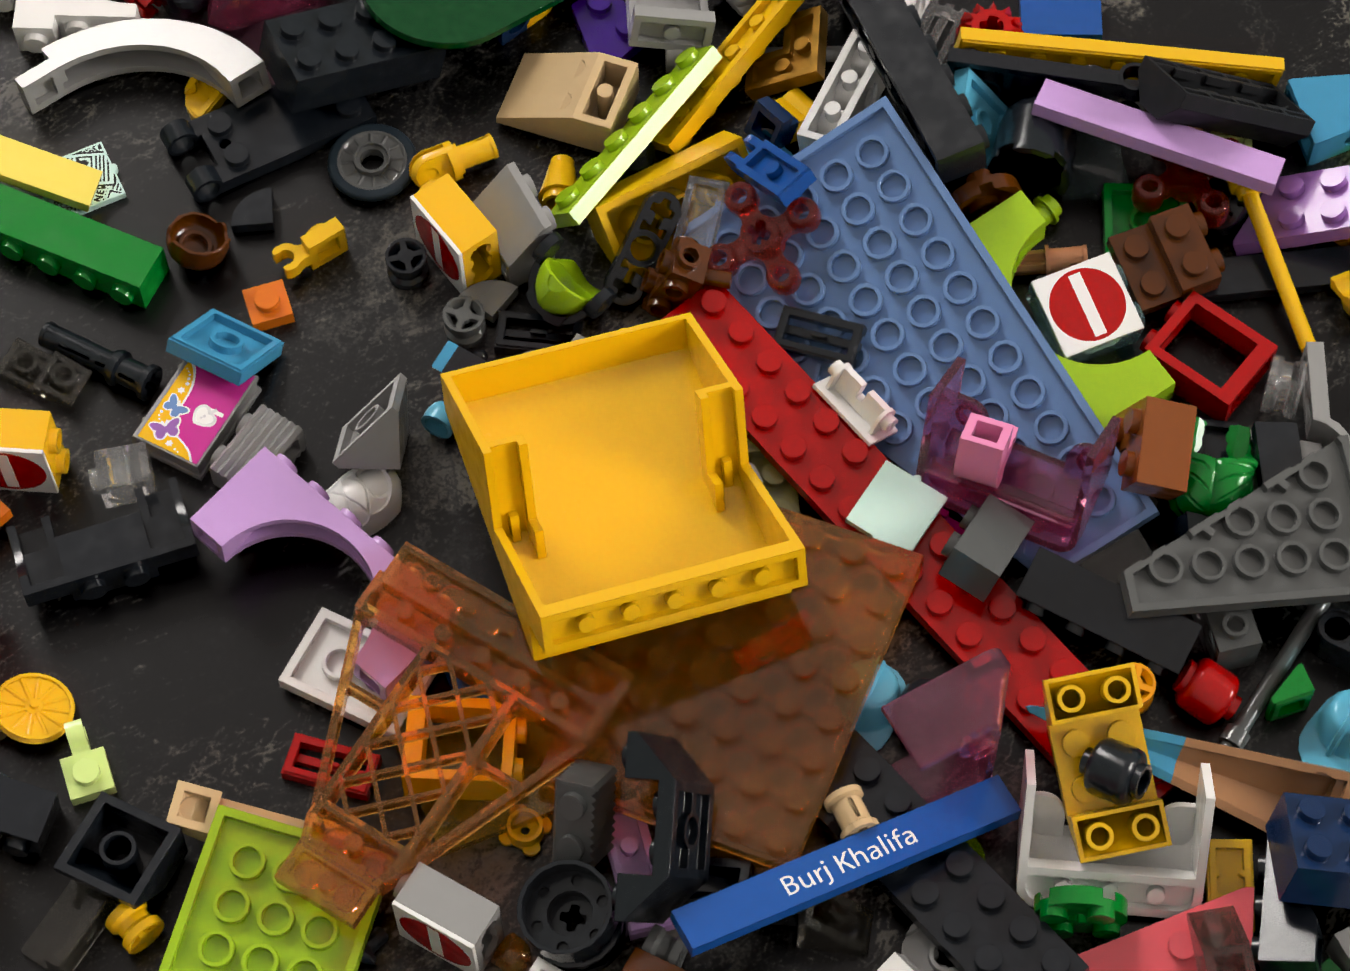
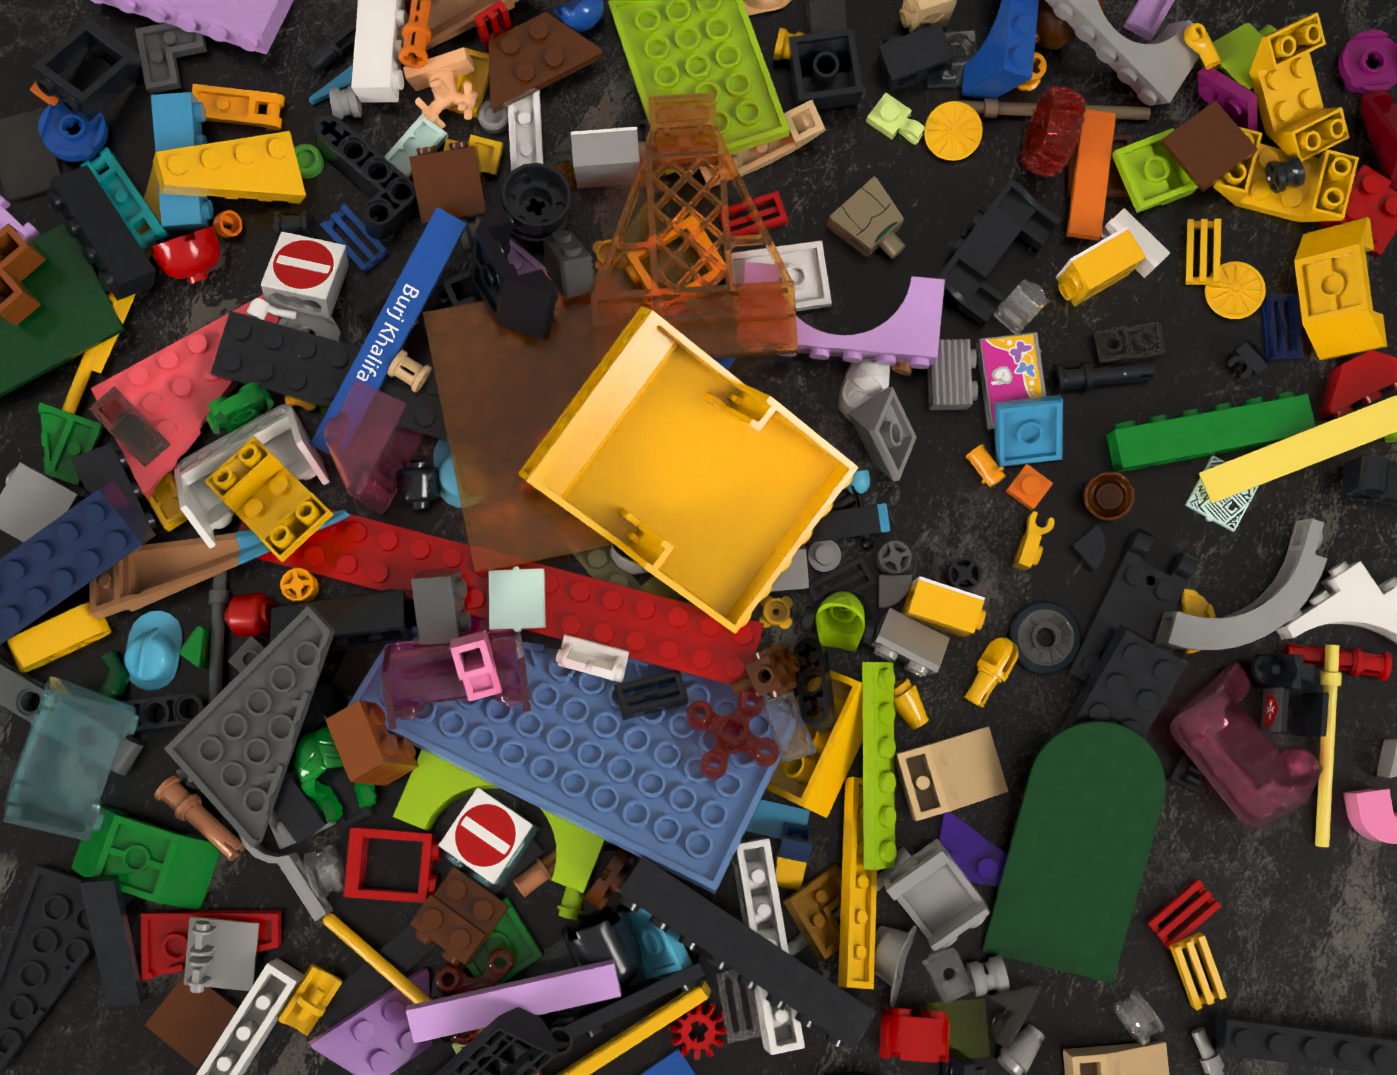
camera: 140 degrees right, 20 degrees up
(207, 669) = (869, 221): none -> dark tan torso
(296, 342) = (986, 466): none -> light orange pin
(771, 170) = (757, 781): blue hinge -> none
(1115, 771) = (259, 495): black head -> none

